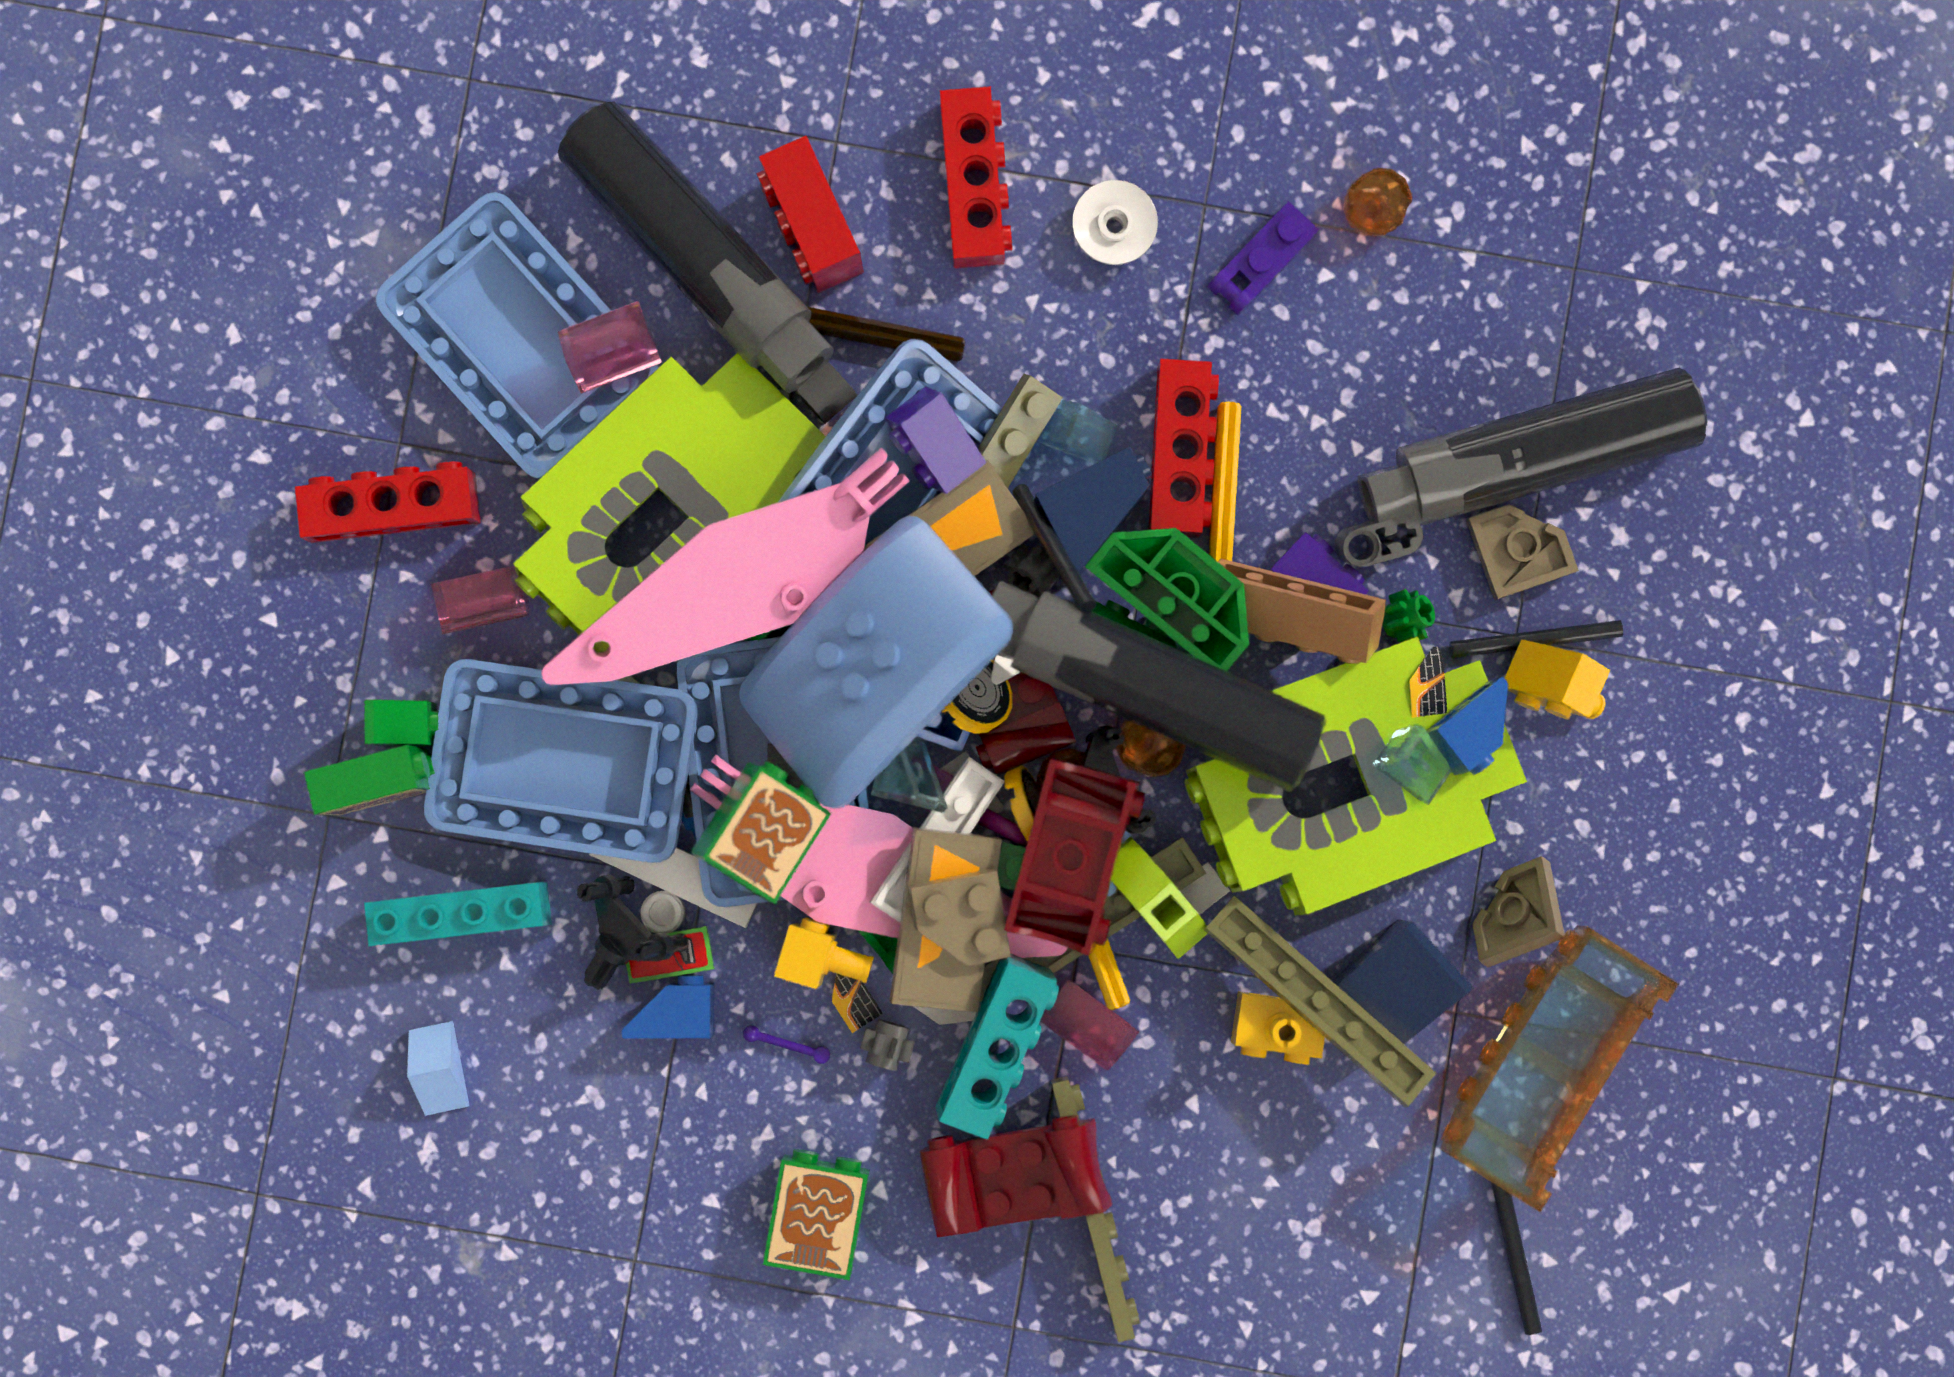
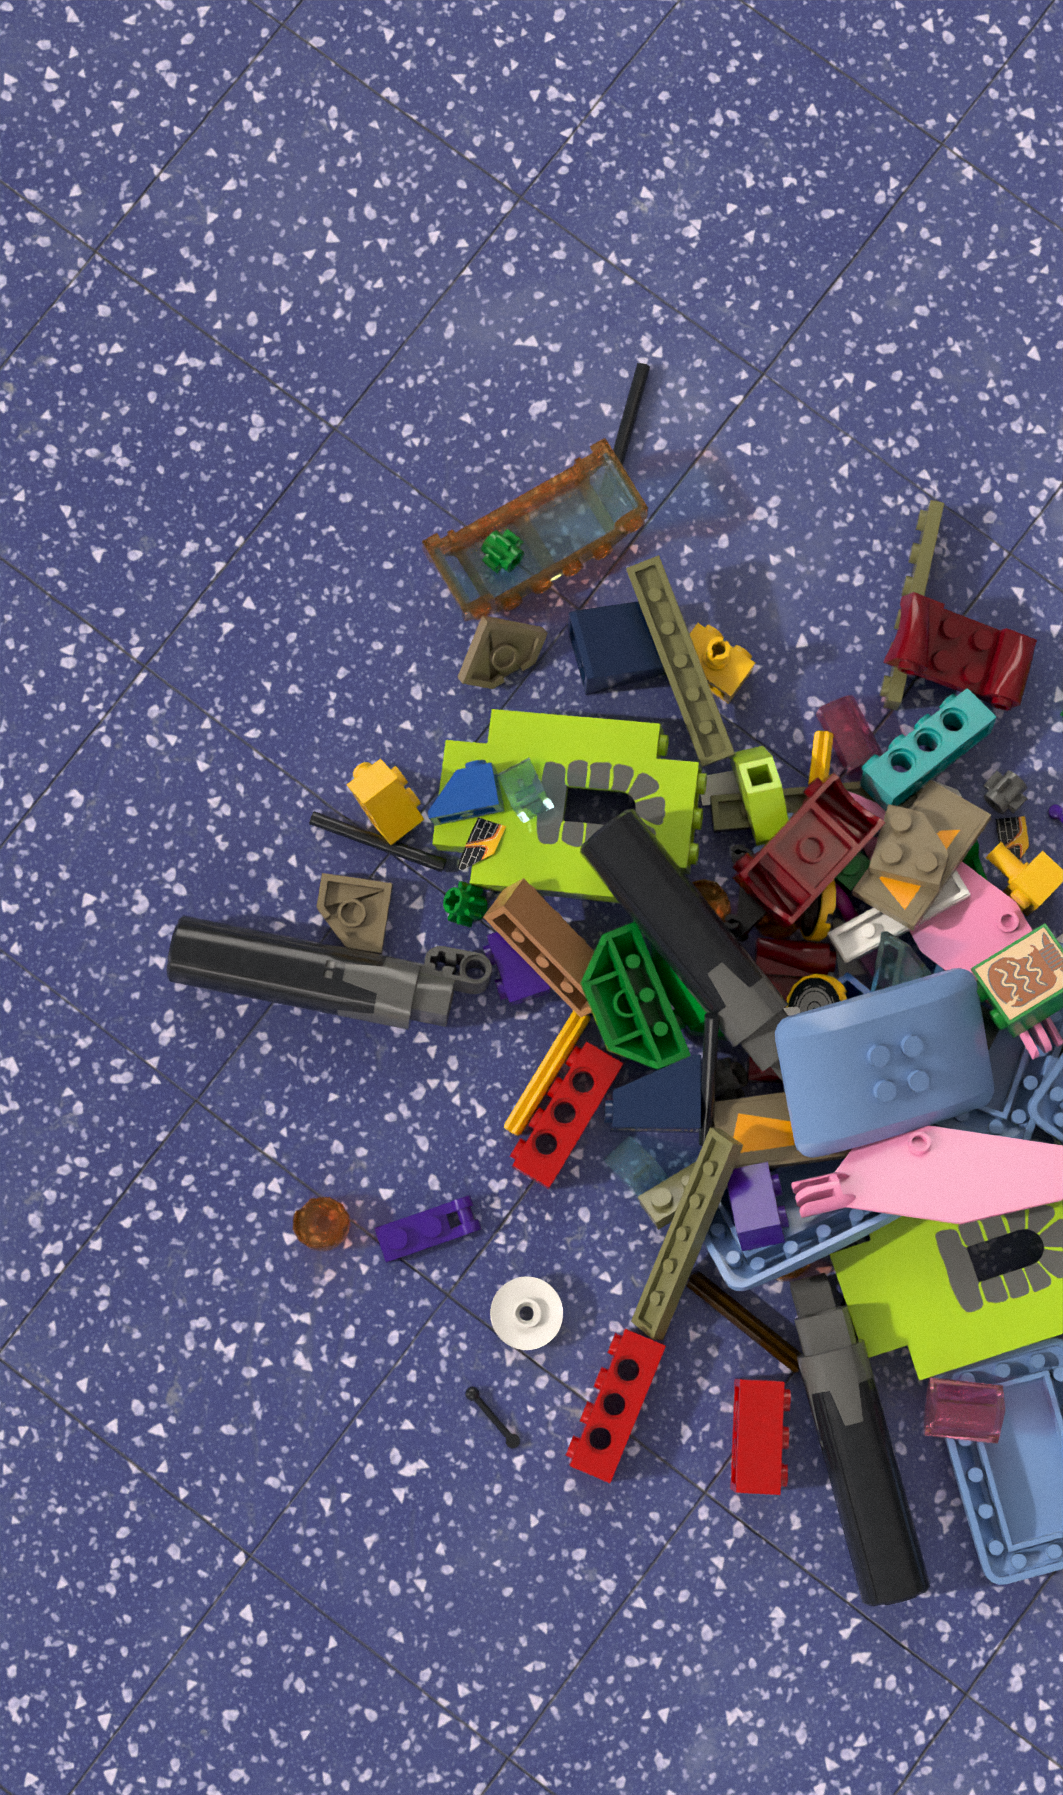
camera: 155 degrees left, 5 degrees down
(992, 381) = (686, 1233): none -> olive plate
(1061, 92) = (512, 1440): none -> black hinge
(1578, 1028) = (502, 551): none -> green gear

